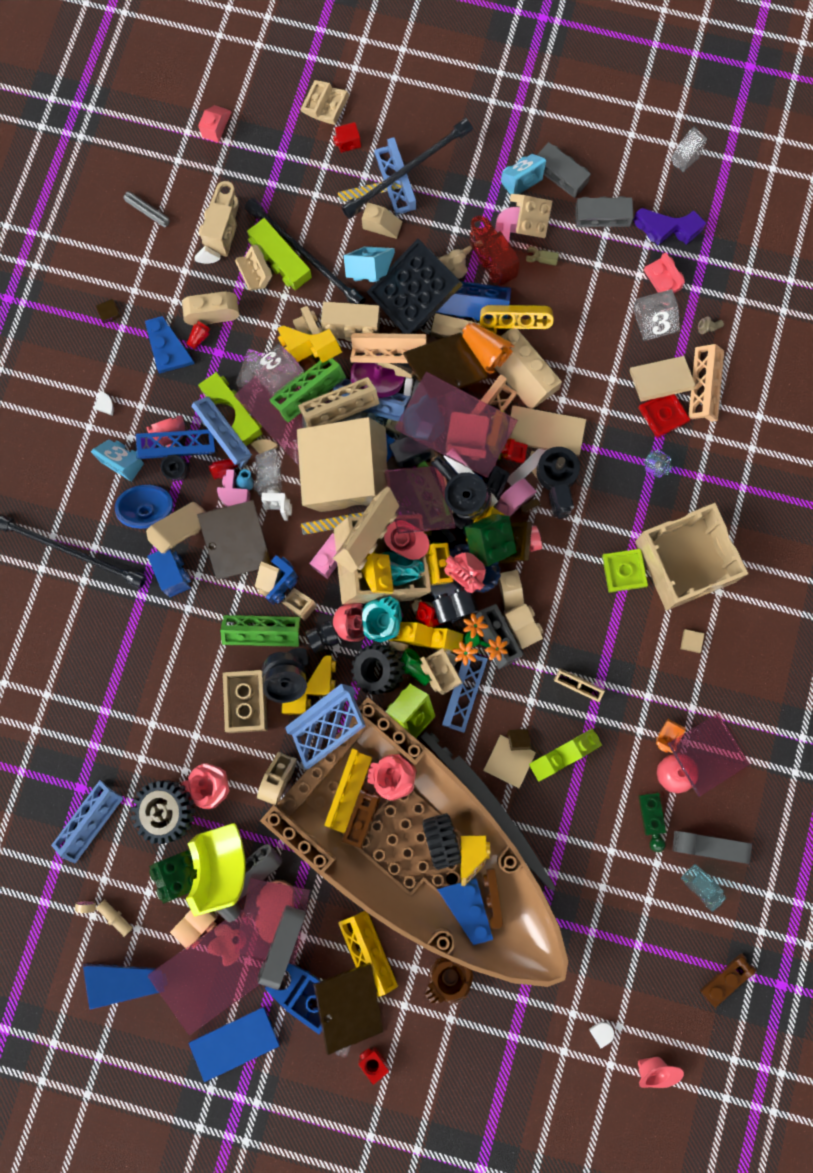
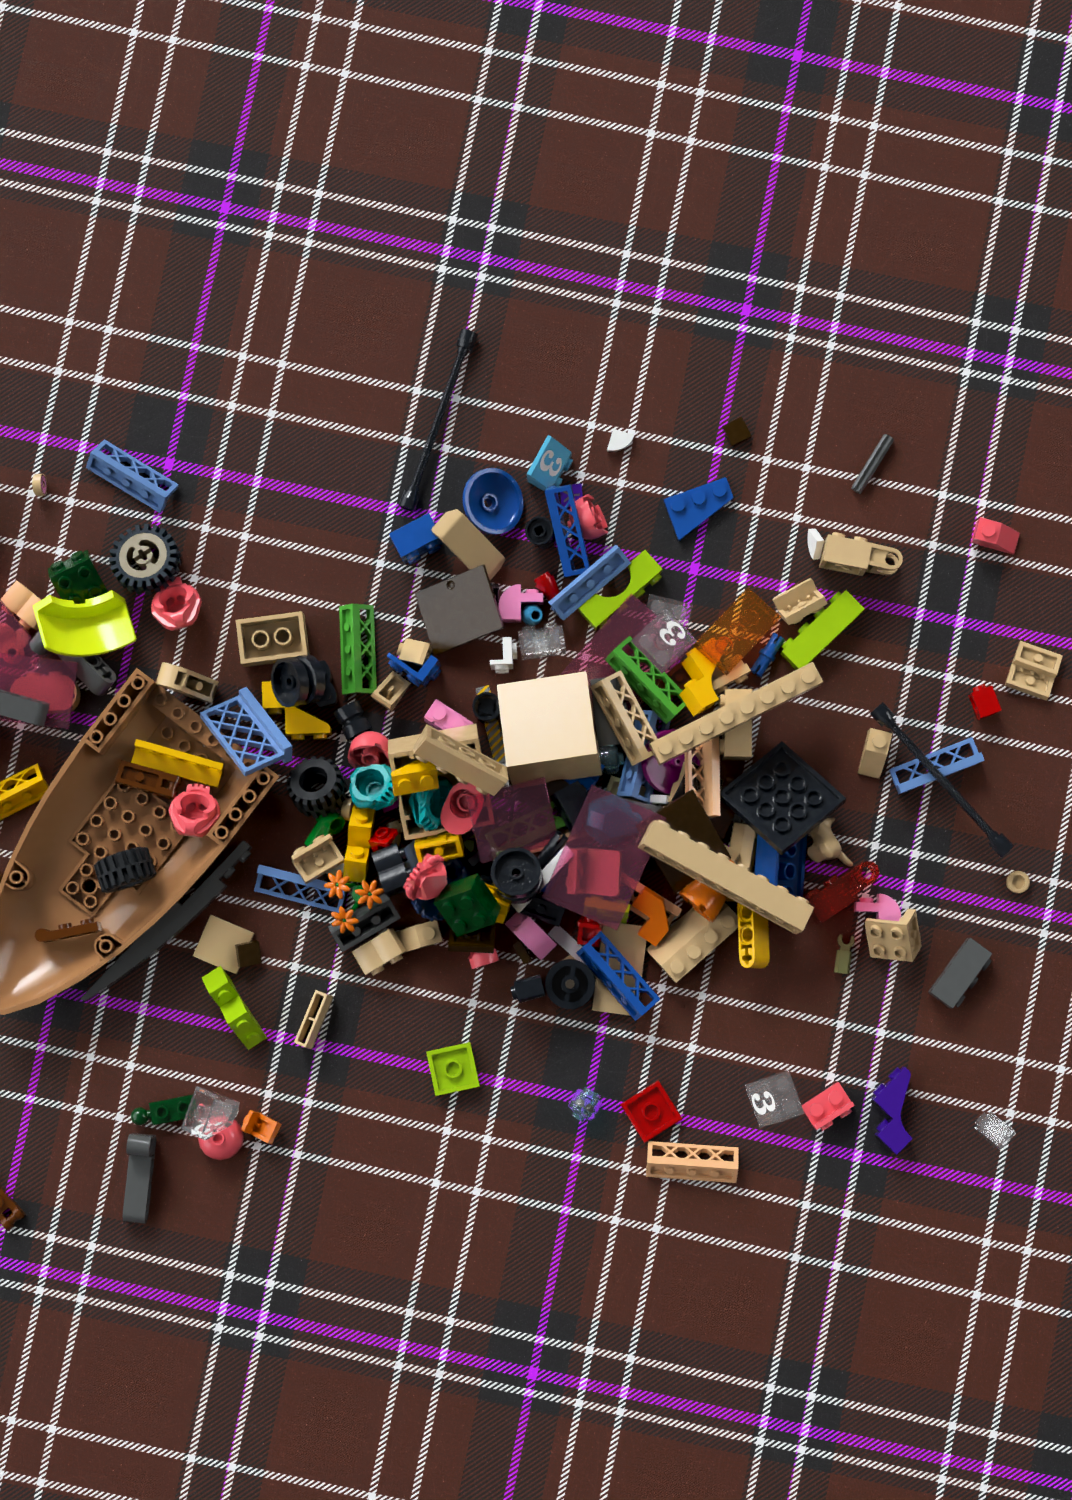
camera: 90 degrees right, 5 degrees up
(114, 917) = (29, 517): tan pin -> none
(198, 335) = (712, 542): red cone -> none
(210, 308) = (744, 554): tan brick -> none
(255, 209) = (879, 598): black hose -> none
(263, 445) = (577, 634): tan tile -> none
(273, 316) = (737, 631): none -> clear orange tile
(294, 298) = (767, 655): none -> blue pin
(320, 522) = (486, 707): none -> black wheel
(343, 312) = (736, 713): none -> tan brick
(360, 191) = (917, 727): sticker -> none
(368, 263) = (816, 741): medium azure slope -> none
(412, 710) = (268, 827): lime brick -> none
(468, 910) = (57, 904): blue wing -> none
(473, 852) = (110, 904): yellow slope -> none
(478, 328) = (726, 877): none -> tan brick
(491, 125) = (1017, 882): none -> tan tile
(510, 393) = (654, 907): none -> orange tile
(523, 174) = (949, 923): medium azure slope -> none
(558, 433) = (612, 981): none -> blue fence
(604, 212) = (907, 1028): dark grey brick -> none
(659, 779) = (209, 1113): none -> clear slope
(662, 378) = (693, 1107): tan tile -> none
(690, 557) = (469, 1143): tan tile -> none
(692, 641) = (374, 1151): tan tile -> none
(704, 887) = (93, 1169): clear light blue brick -> none
(706, 325) = (765, 1159): dark tan plate -> none
(708, 754) = (242, 1170): clear pink piece -> none

